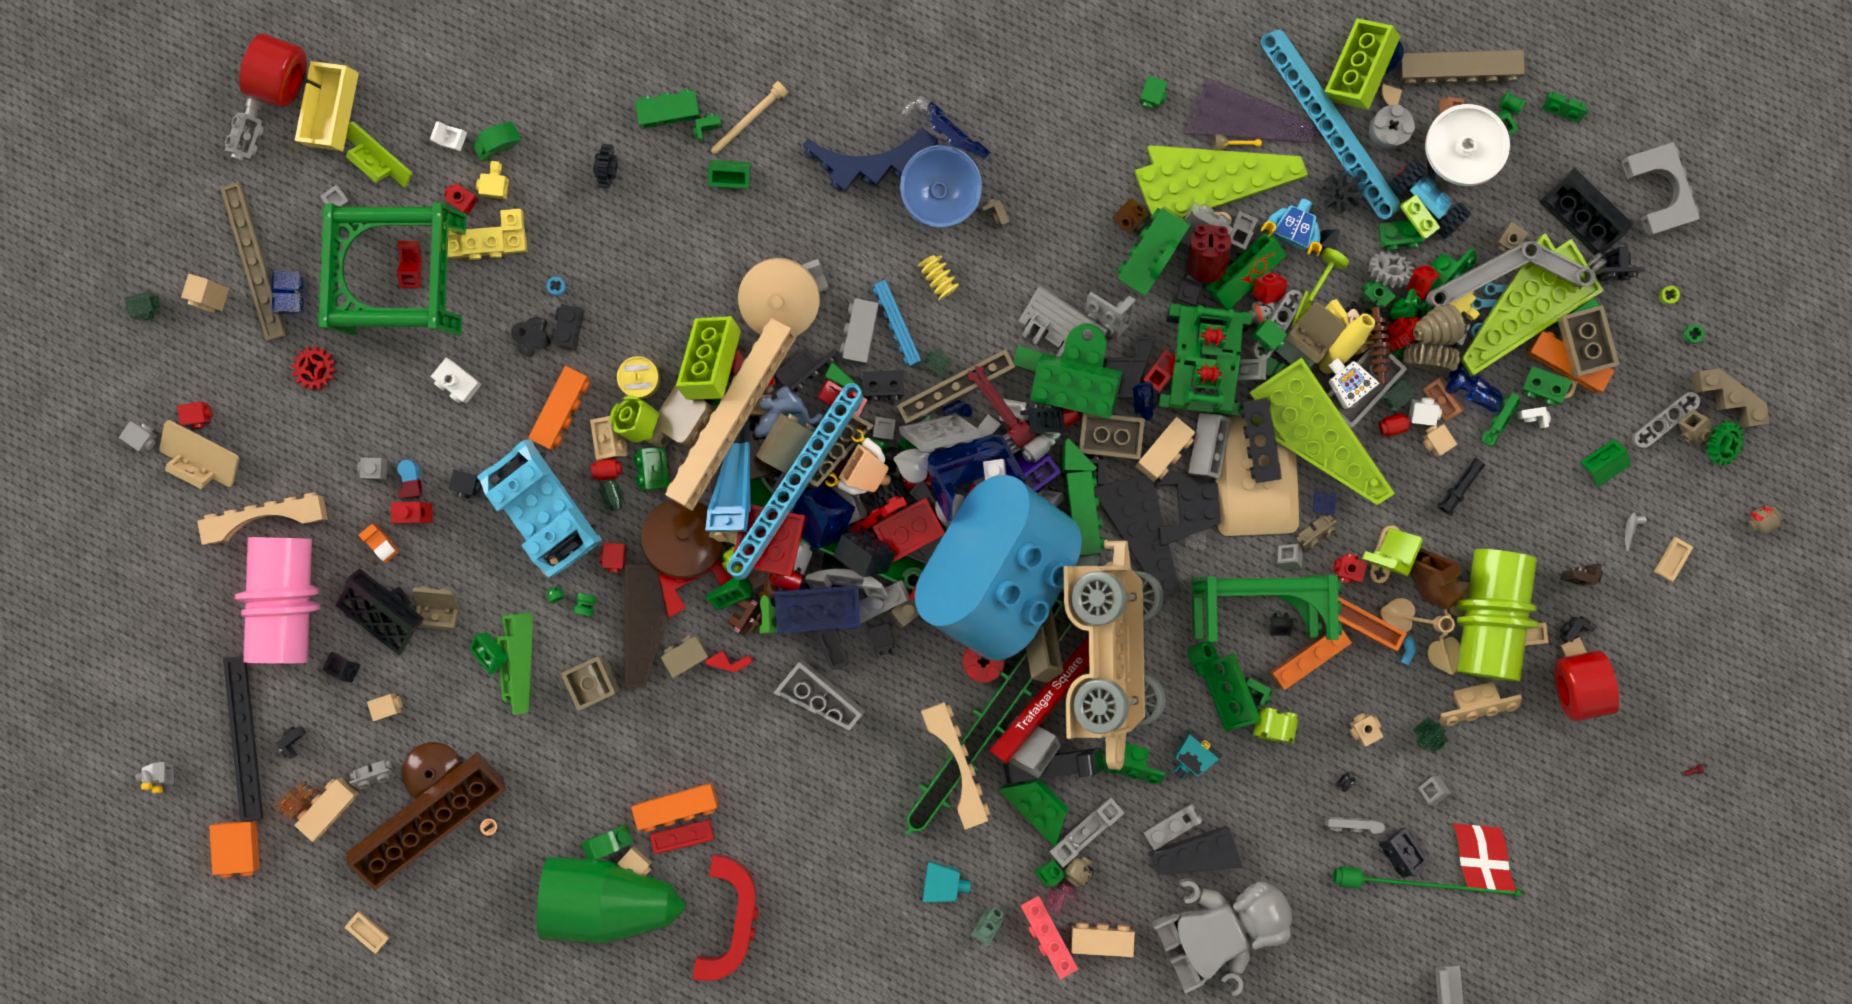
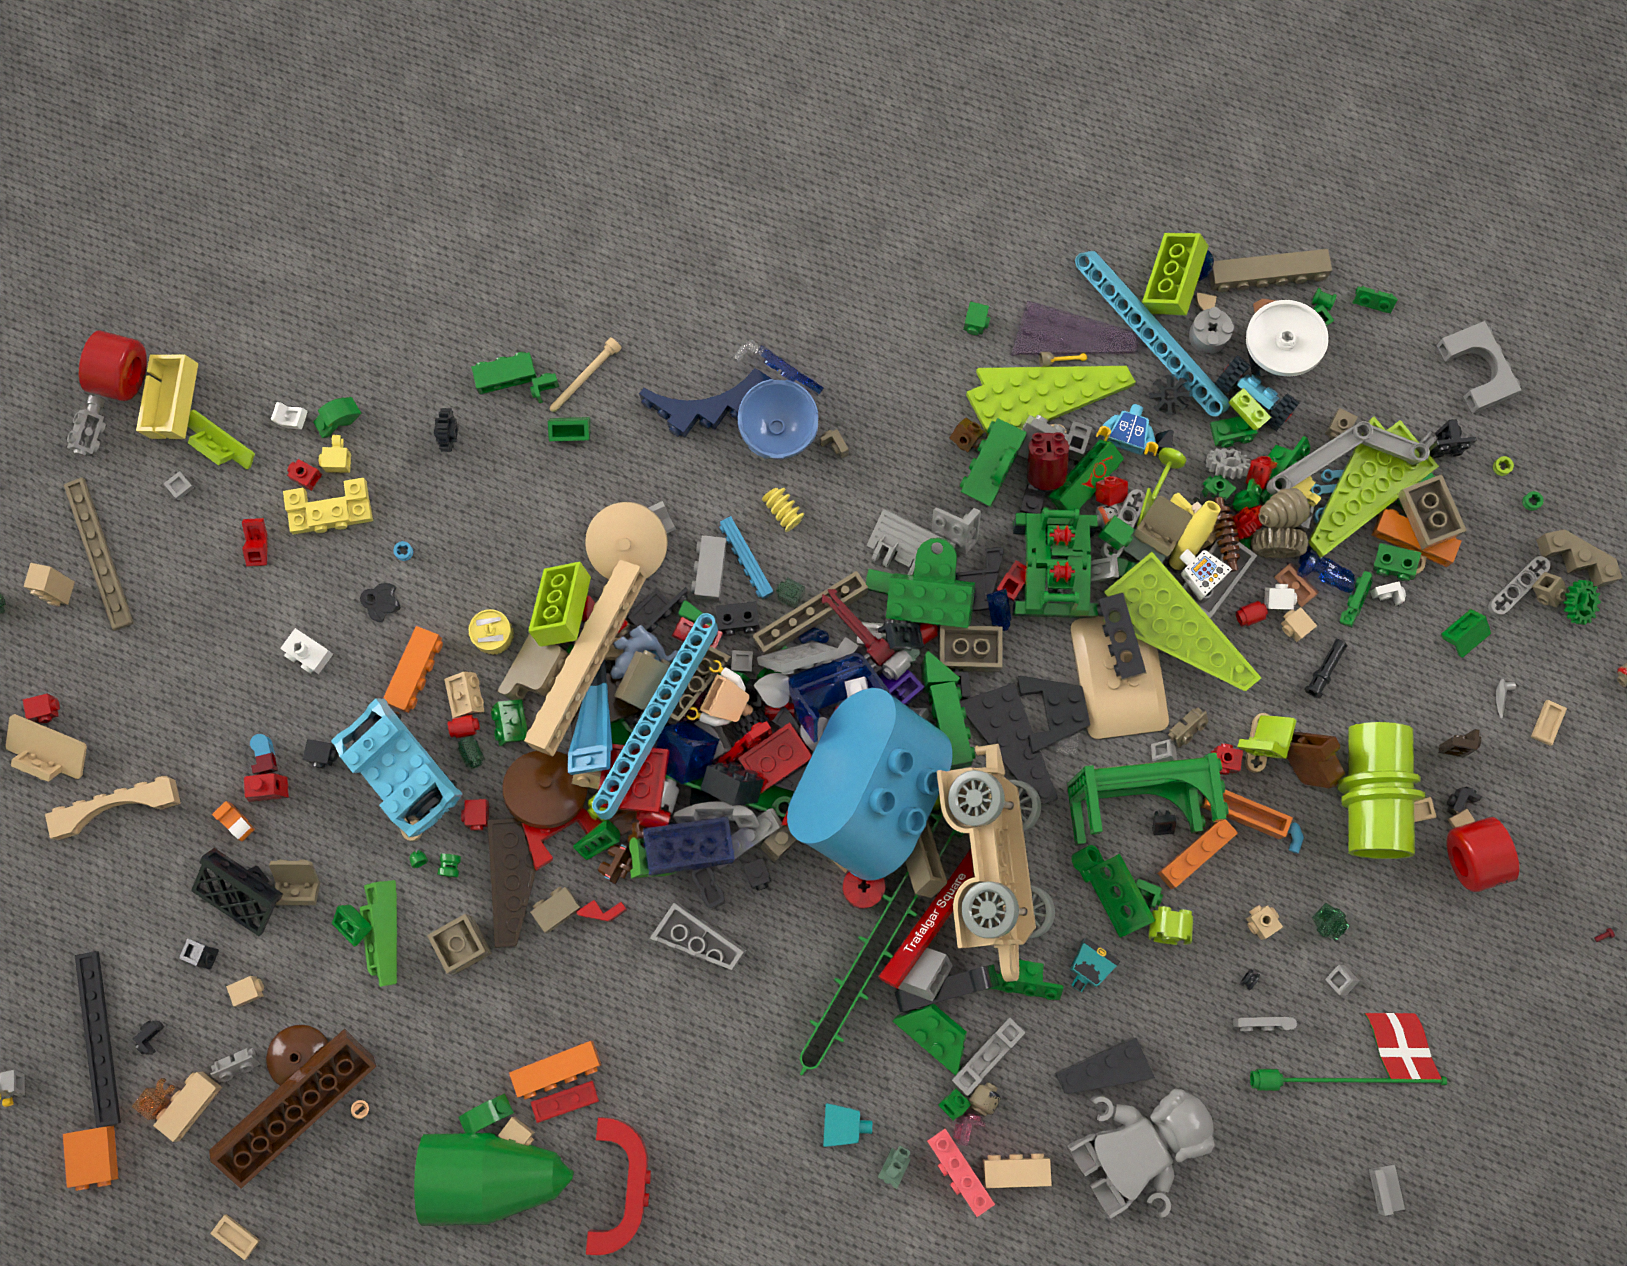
camera: 10 degrees left, 10 degrees down
(277, 600) = (129, 887): bright pink piece -> none
(285, 292) = (131, 579): clear blue piece -> none
(317, 376) = (153, 648): red gear -> none
(352, 221) = (193, 502): green arch -> none
(372, 468) = (225, 746): light grey brick -> none
(568, 326) = (417, 588): black brick -> none
(634, 419) = (488, 672): lime brick -> none
(970, 805) = (864, 1036): tan arch -> none
(1166, 450) = (1026, 657): tan brick -> none
(1172, 826) = (1076, 1043): light grey plate -> none
(1209, 445) = (1070, 649): light grey brick -> none
(1324, 502) = (1192, 697): clear blue plate -> none
(1399, 394) = (1252, 583): clear green brick -> none
(1404, 853) = (1320, 1049): black bracket -> none
(1441, 653) = (1329, 837): tan plant -> none
(1478, 702) = (1375, 884): tan bracket -> none
(1586, 212) = (1410, 395): black slope -> none

